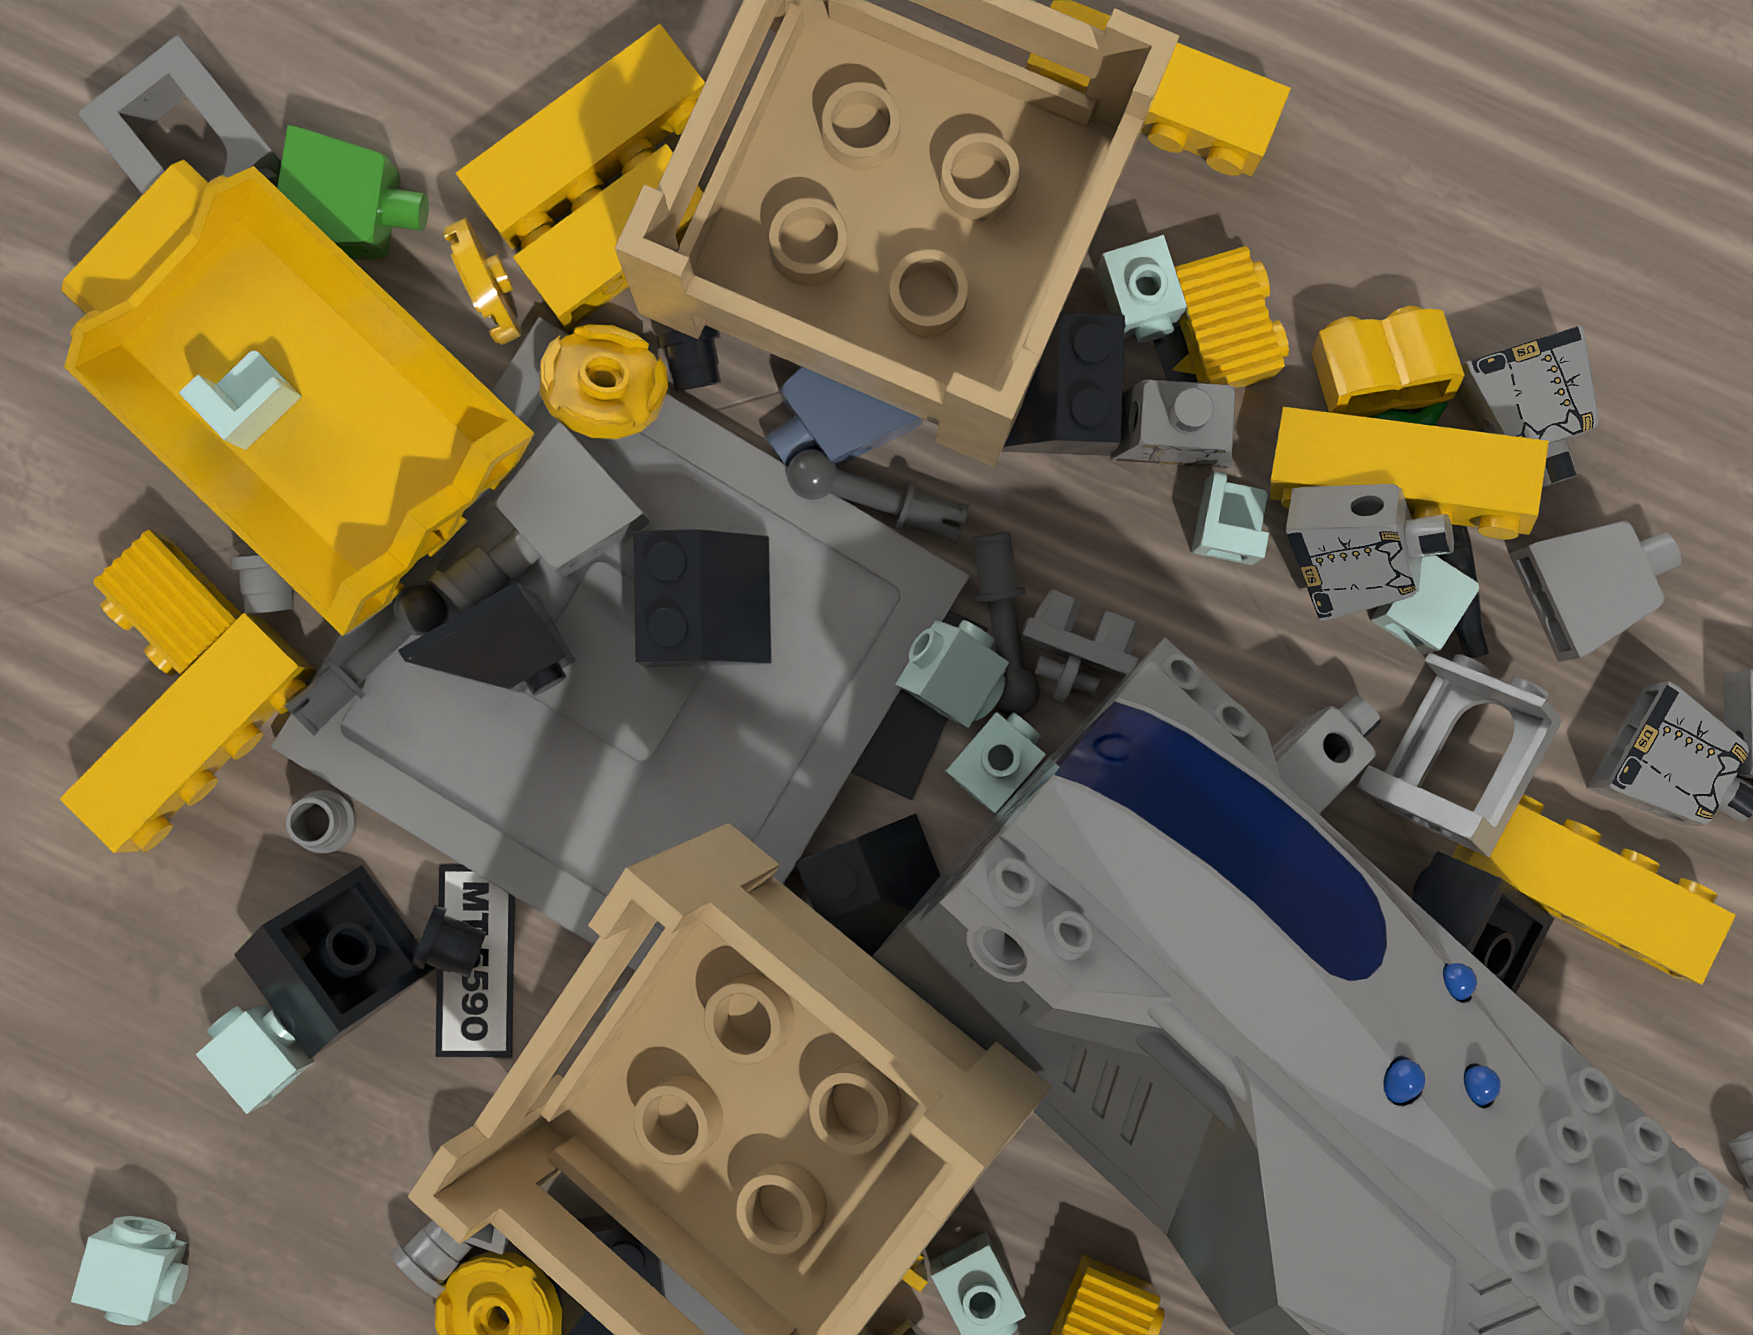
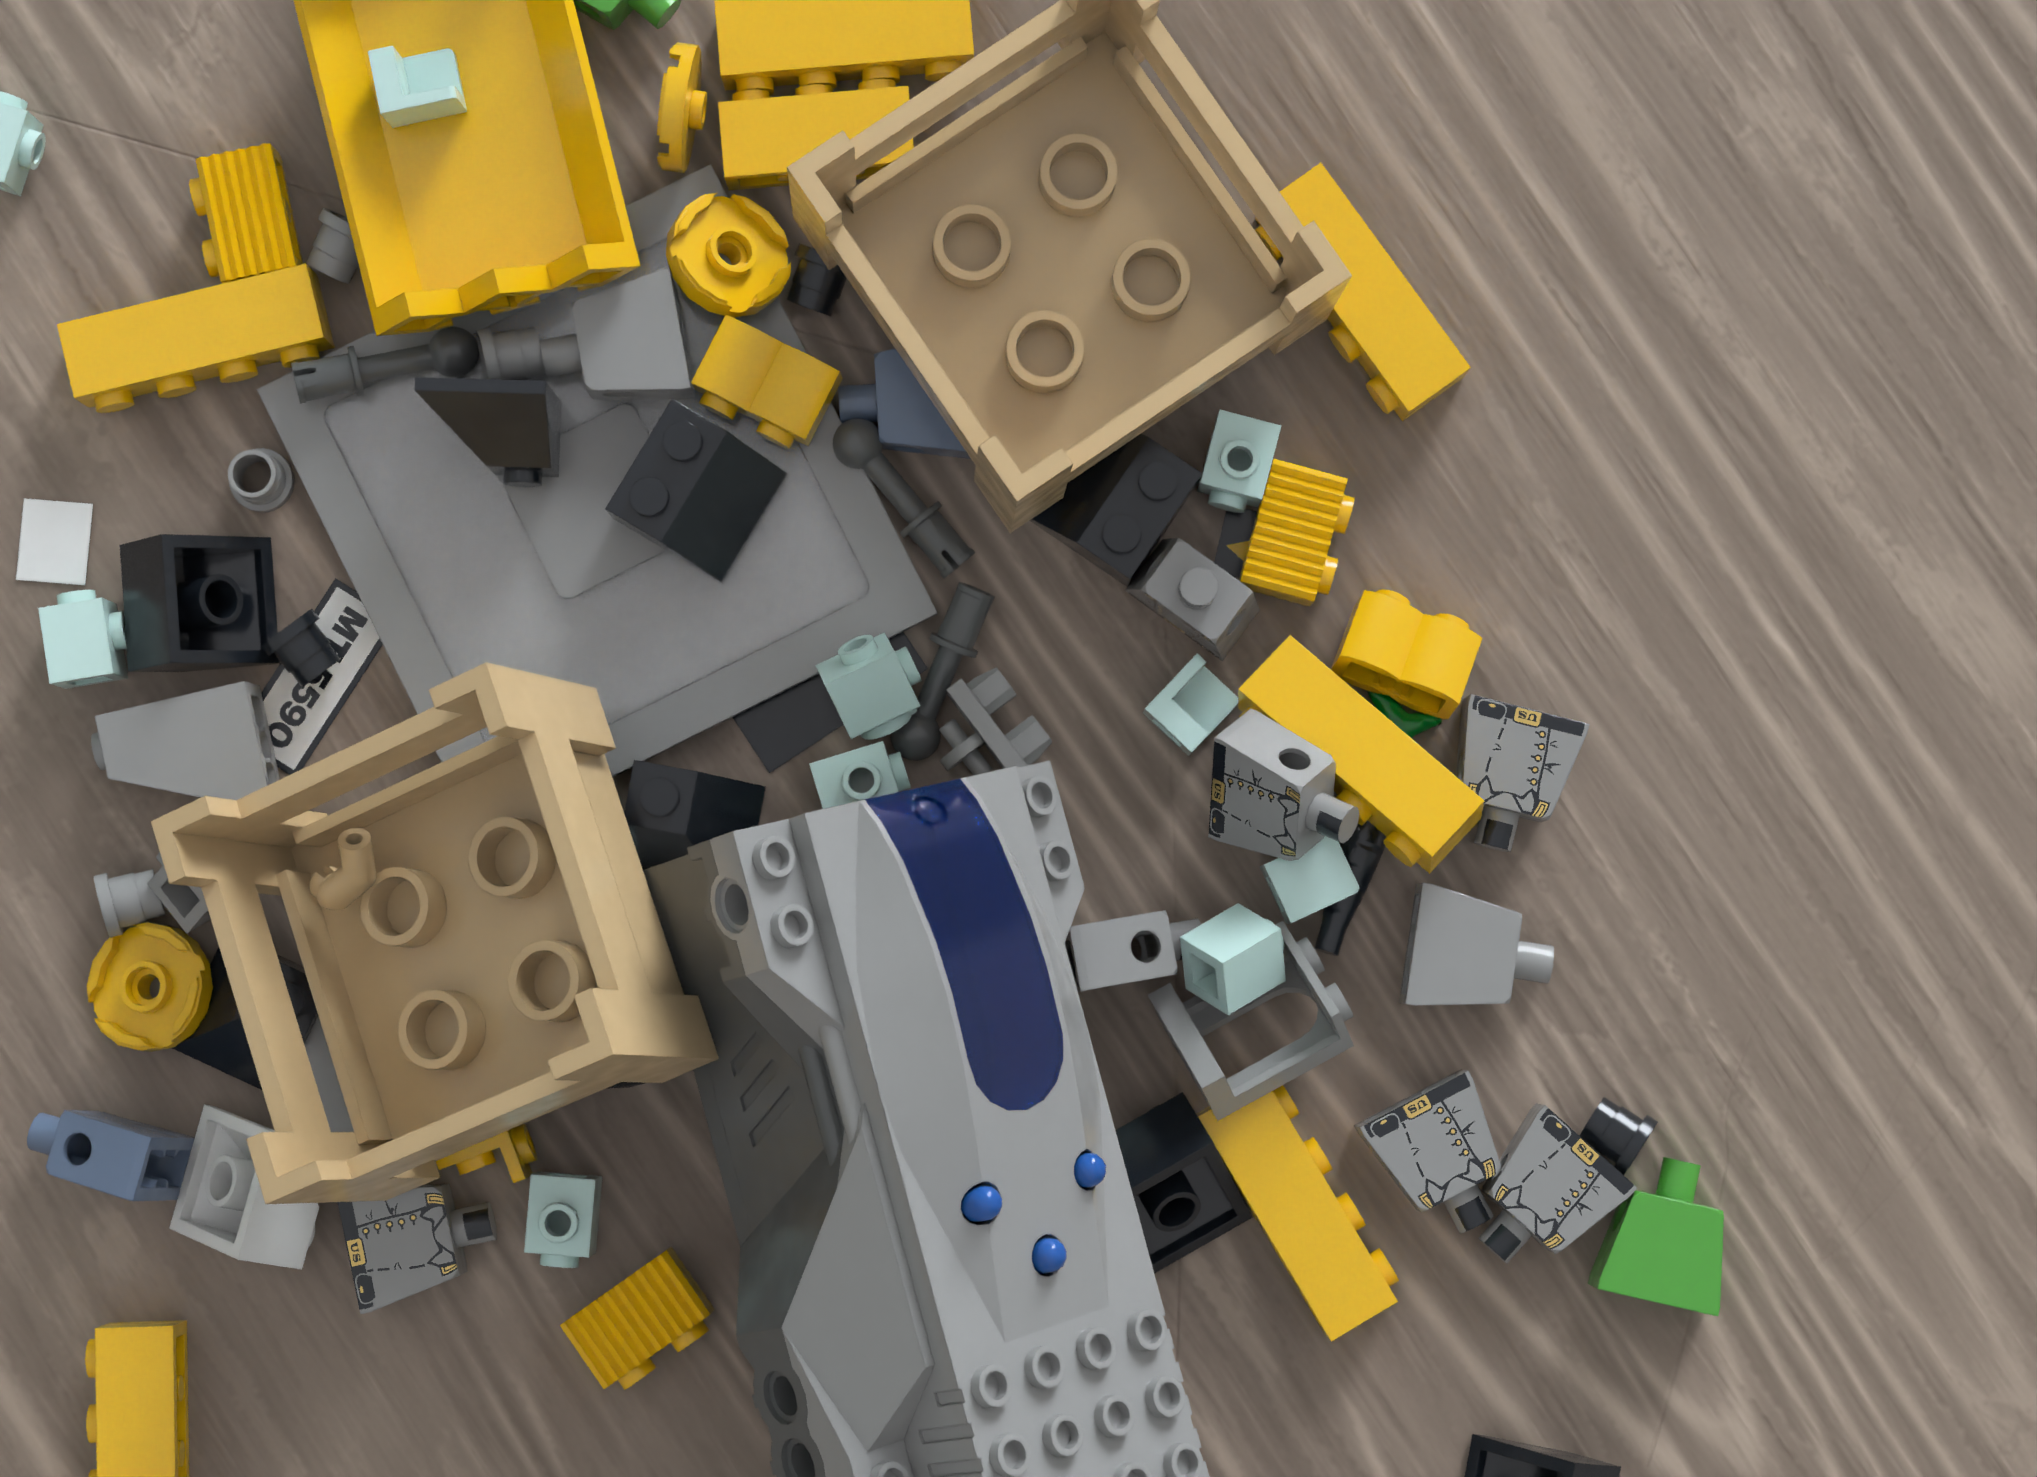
camera: 30 degrees right, 0 degrees up
(178, 984) = (54, 541): none -> white sticker
(406, 1087) = (191, 743): none -> light grey slope
(618, 1126) = (354, 875): none -> tan arm
(703, 469) = (766, 382): none -> yellow brick
(1412, 711) = (1233, 958): none -> light aqua brick

